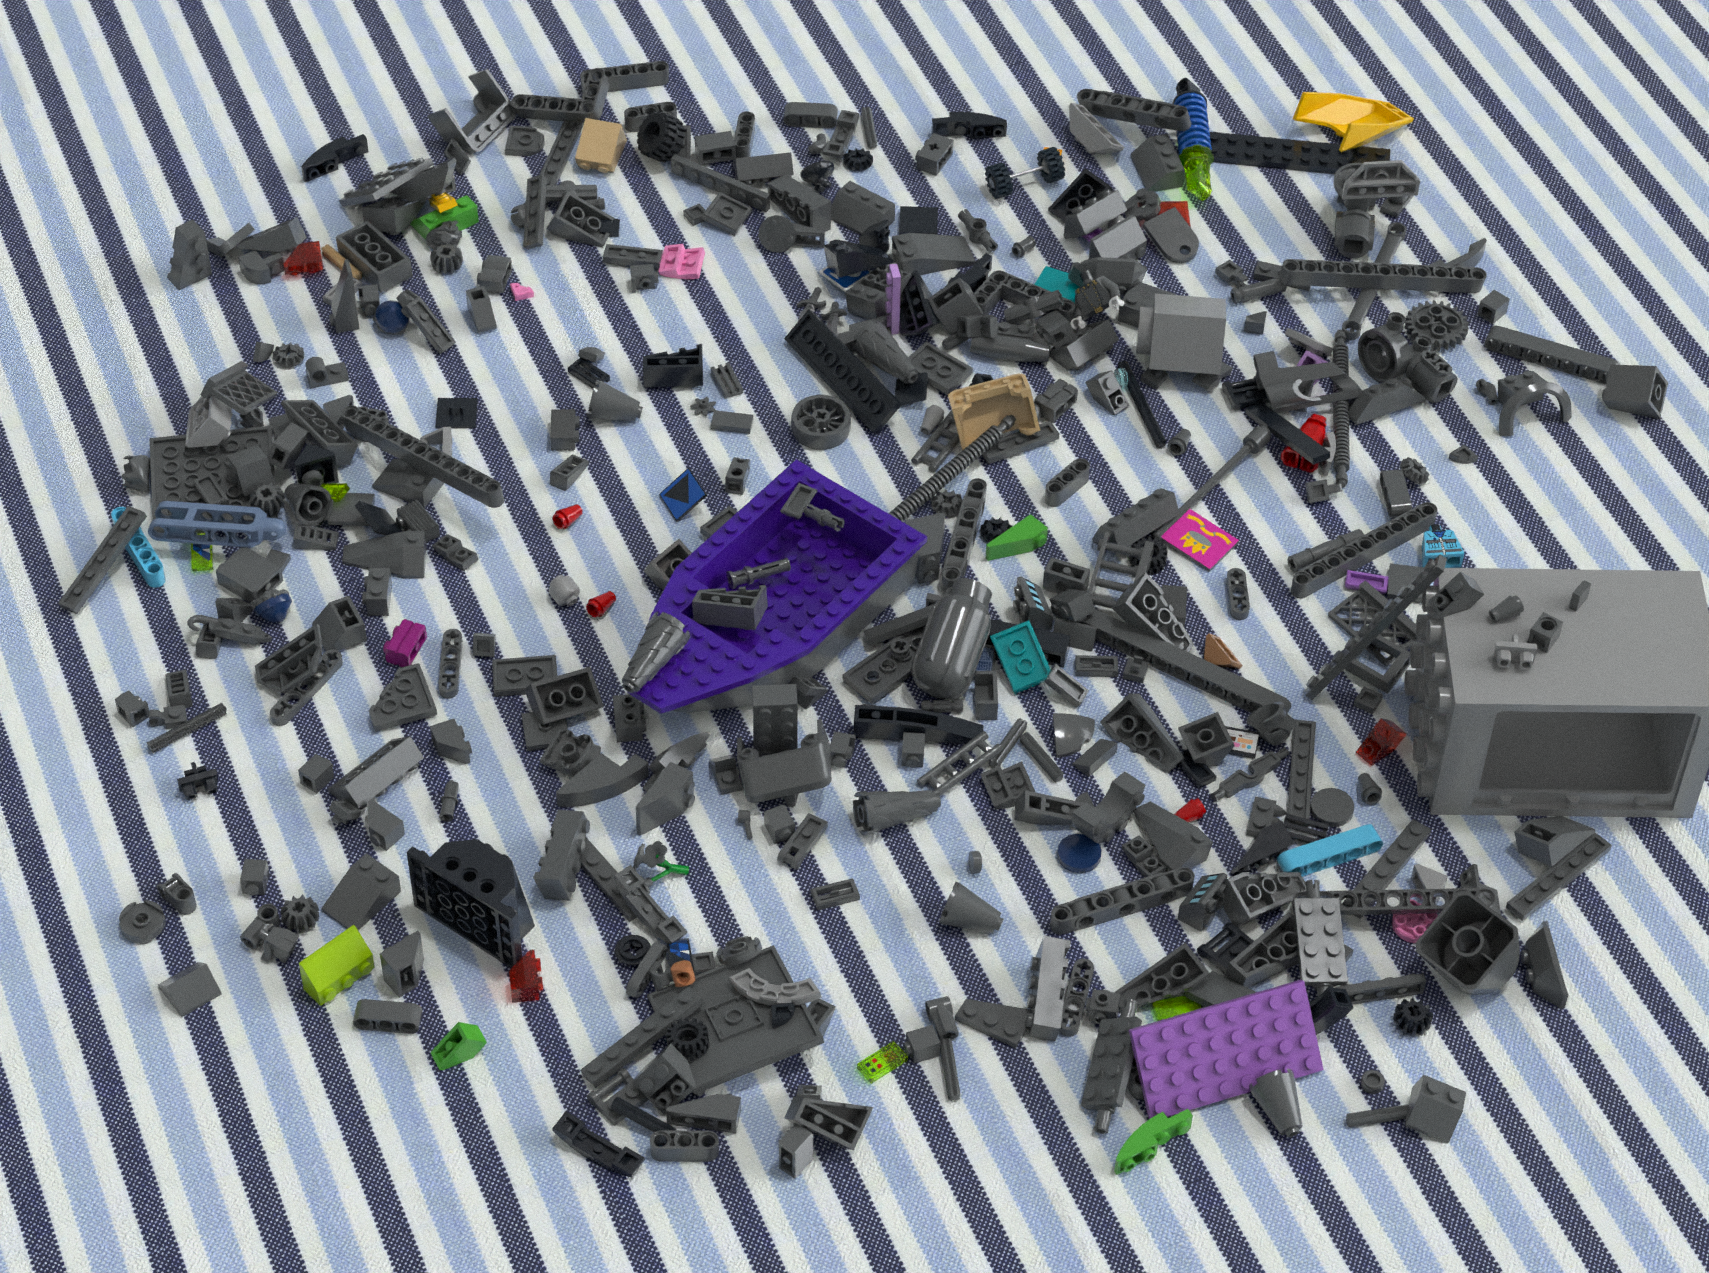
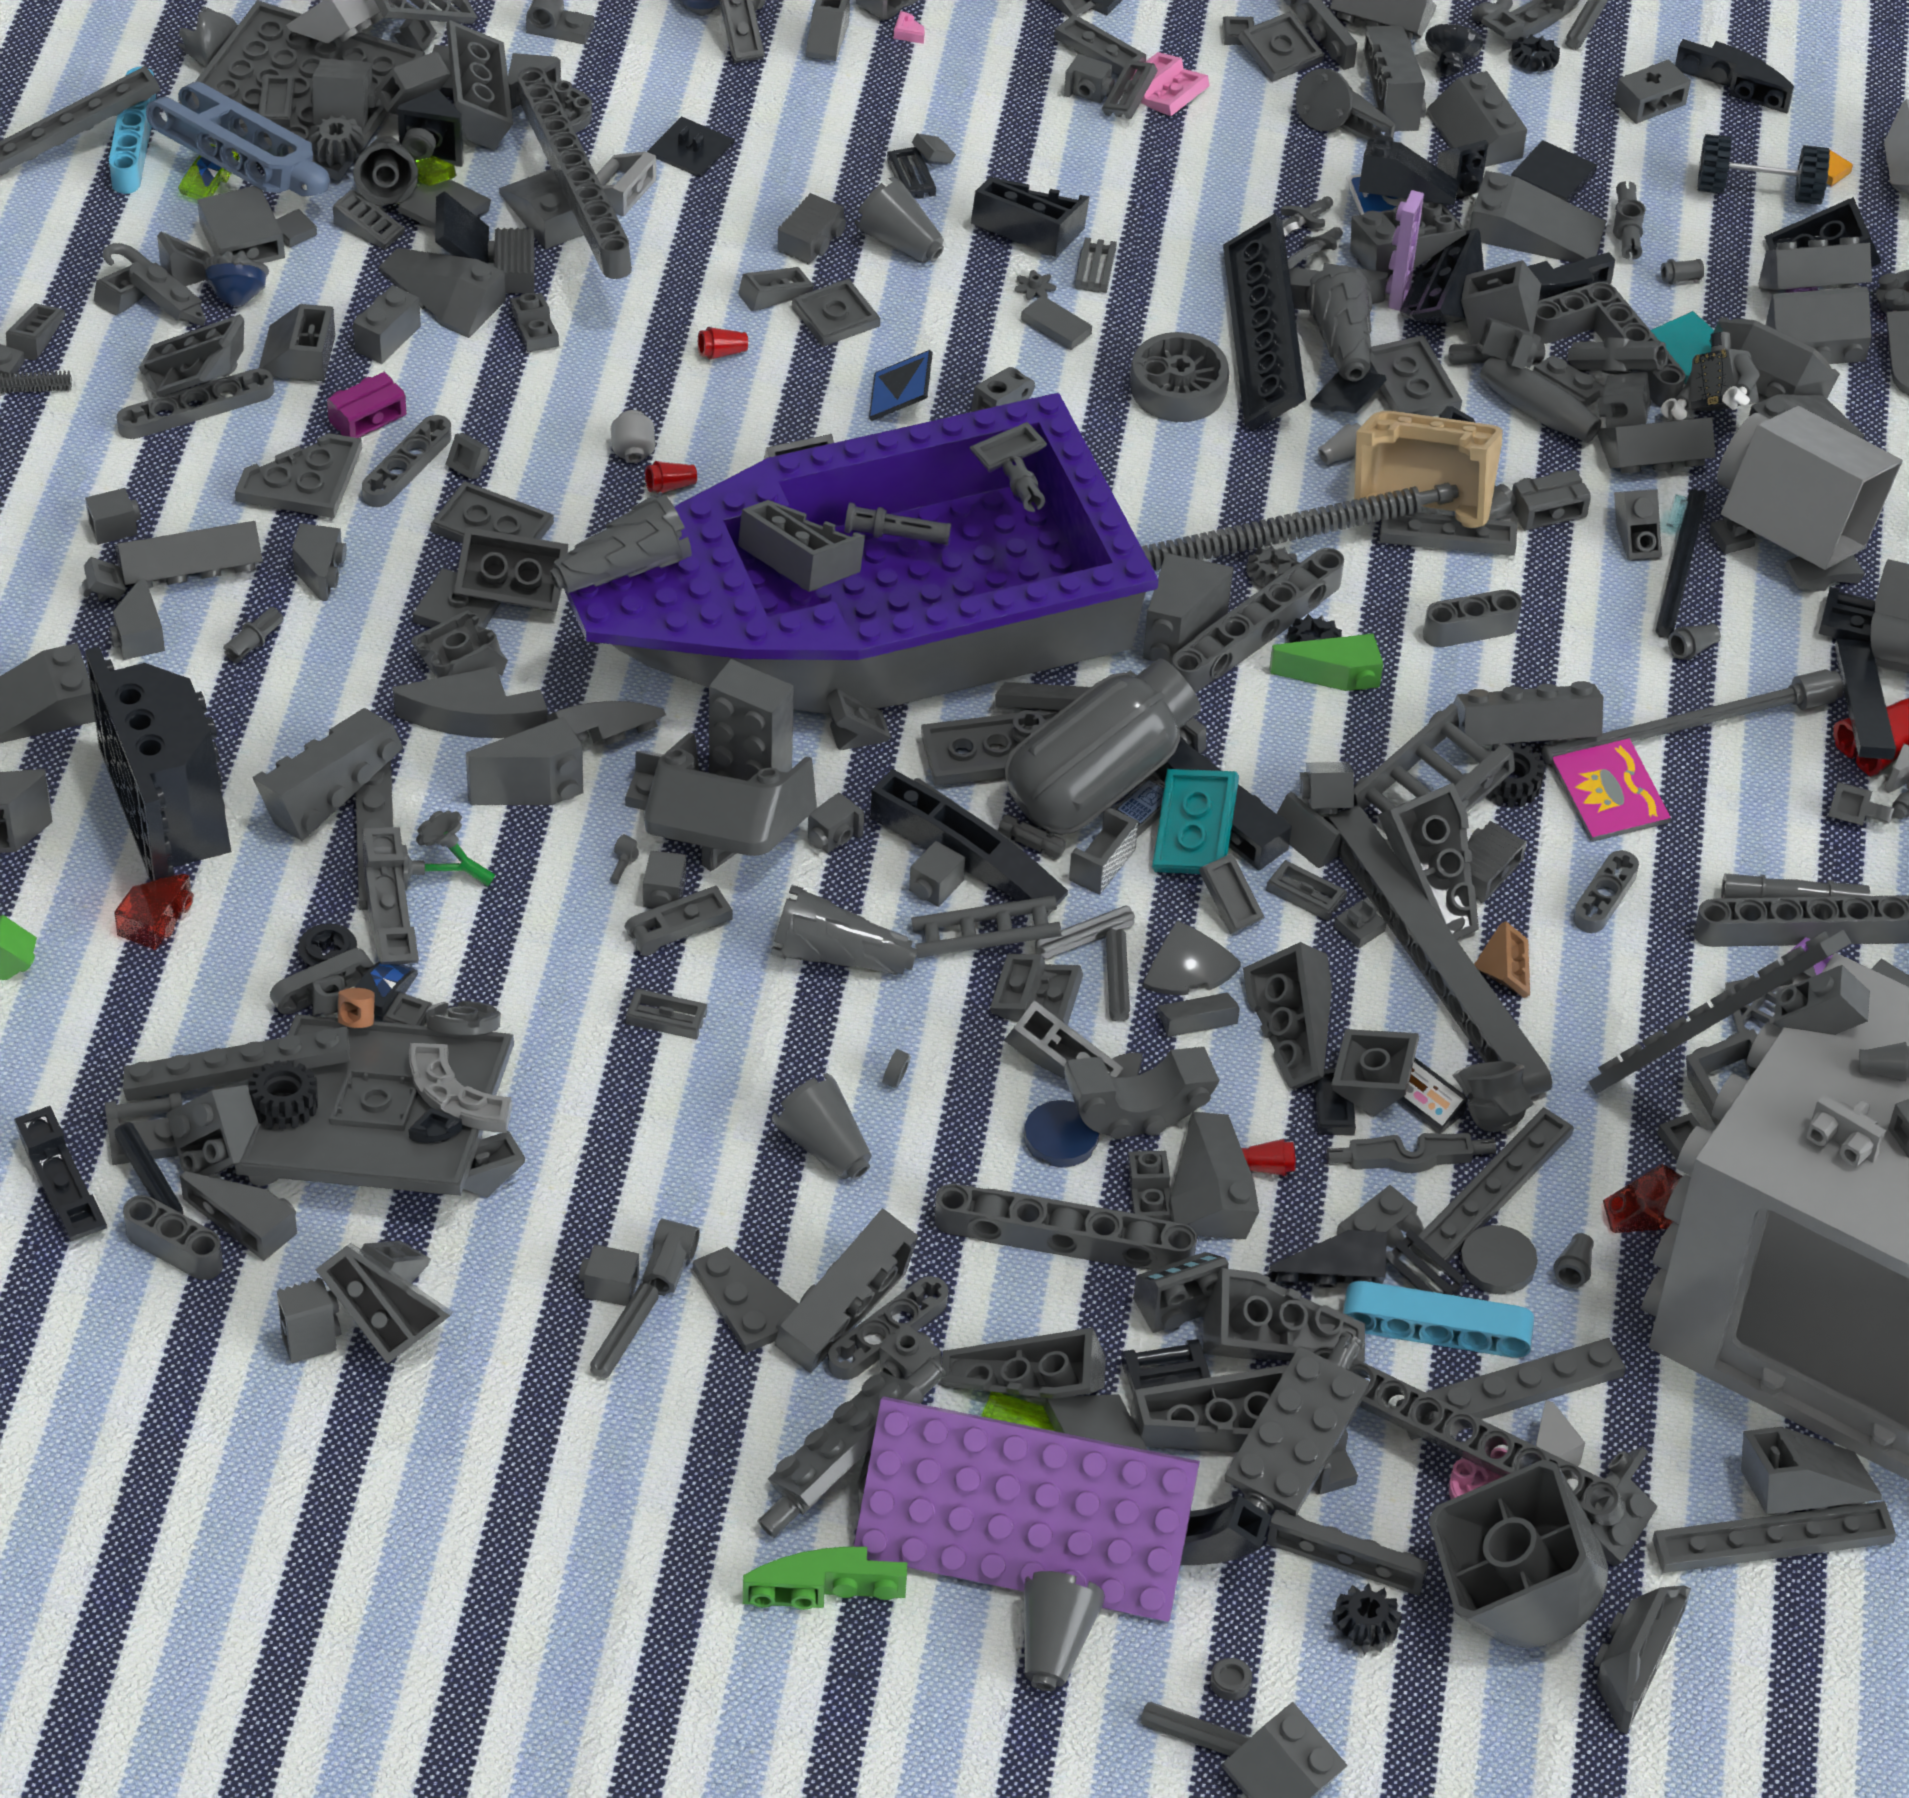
camera: 30 degrees right, 0 degrees up
(611, 470) = (835, 312): none -> dark grey tile
(628, 718) = (567, 650): dark grey brick -> none
(671, 286) = (1134, 89): none -> dark grey tile
(882, 1062) = (539, 1271): clear neon green tile -> none
(931, 442) = (1321, 479): dark grey bar -> none
(1032, 605) = (1271, 758): dark grey slope -> none
(1065, 575) = (1351, 739): dark grey brick -> none

